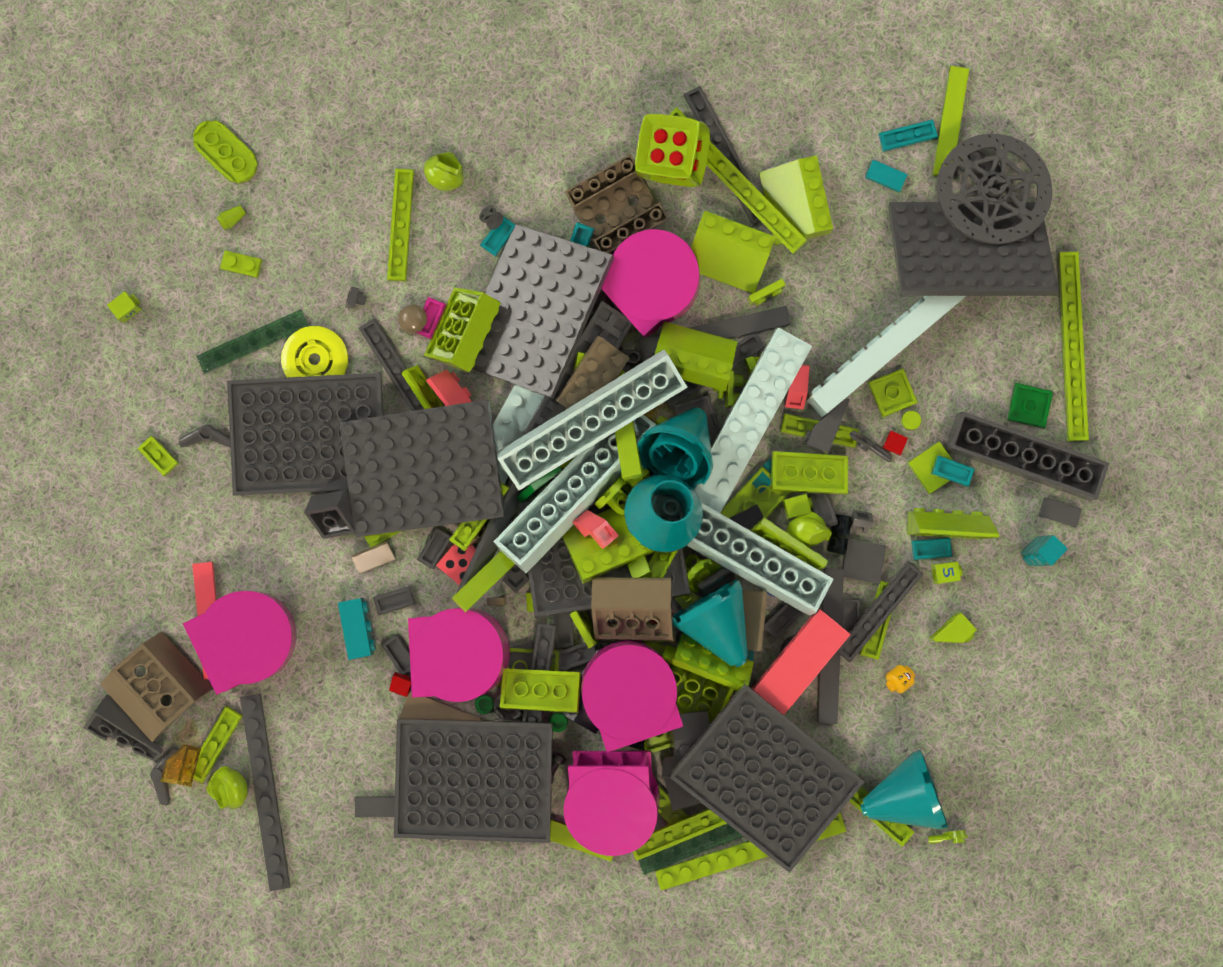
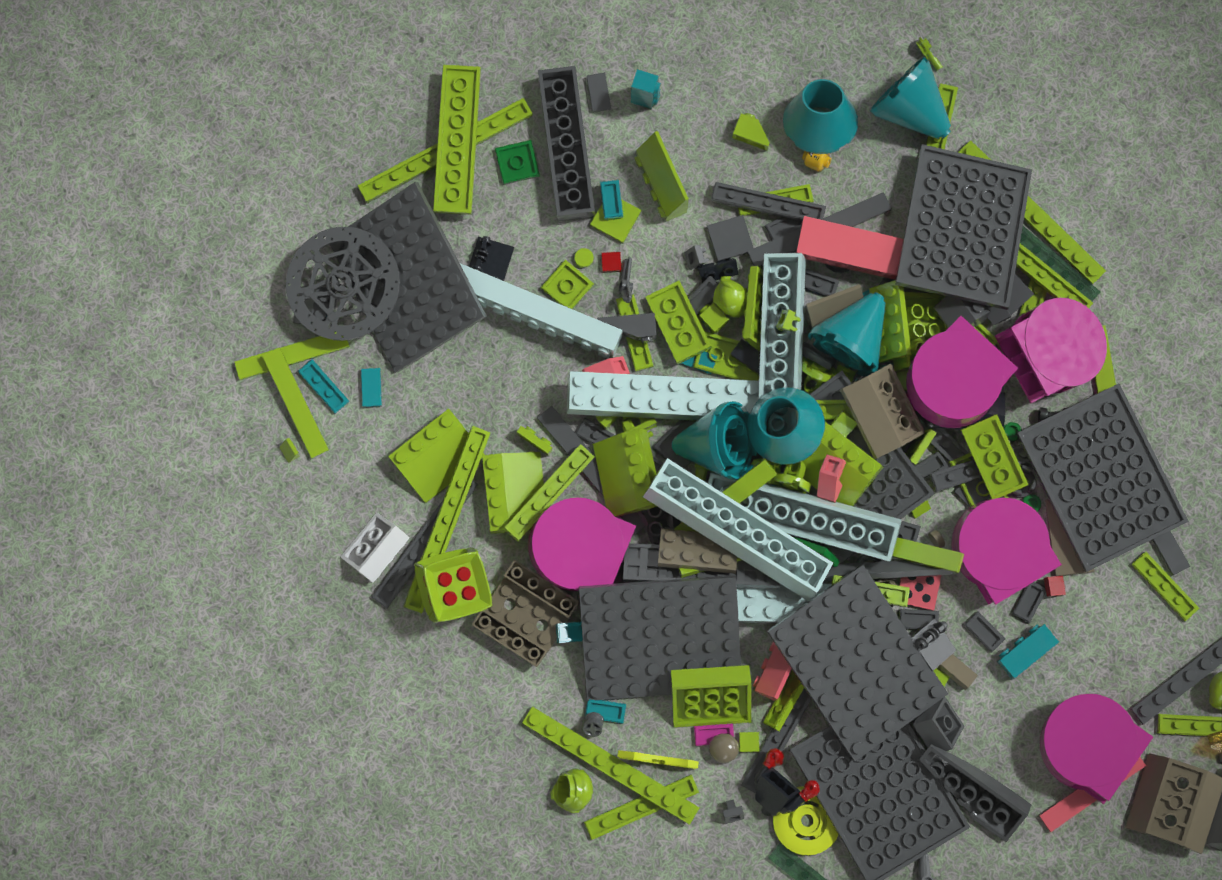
camera: 120 degrees left, 5 degrees down
(254, 520) = (982, 795): none -> dark grey wedge
(349, 784) = (1165, 586): none -> lime tile
(350, 340) = (776, 792): none -> black torso
(405, 547) = (934, 643): none -> hinge
(407, 344) = (749, 741): none -> lime tile
(438, 249) = (635, 756): none -> neon yellow tile
(448, 215) = (611, 765): none -> lime plate
(713, 278) = (549, 492): none -> lime plate
(741, 108) = (375, 547): none -> white slope
(760, 563) = (786, 319): none -> lime tile
(865, 79) = (289, 450): none -> lime slope
(905, 103) = (295, 402): none -> lime tile
(922, 694) = (816, 130): none -> teal cone
(931, 548) = (691, 186): teal tile -> none
(946, 572) = (703, 162): lime brick -> none
(951, 337) = (491, 257): none -> black hinge
(1079, 359) = (457, 139): none -> lime plate

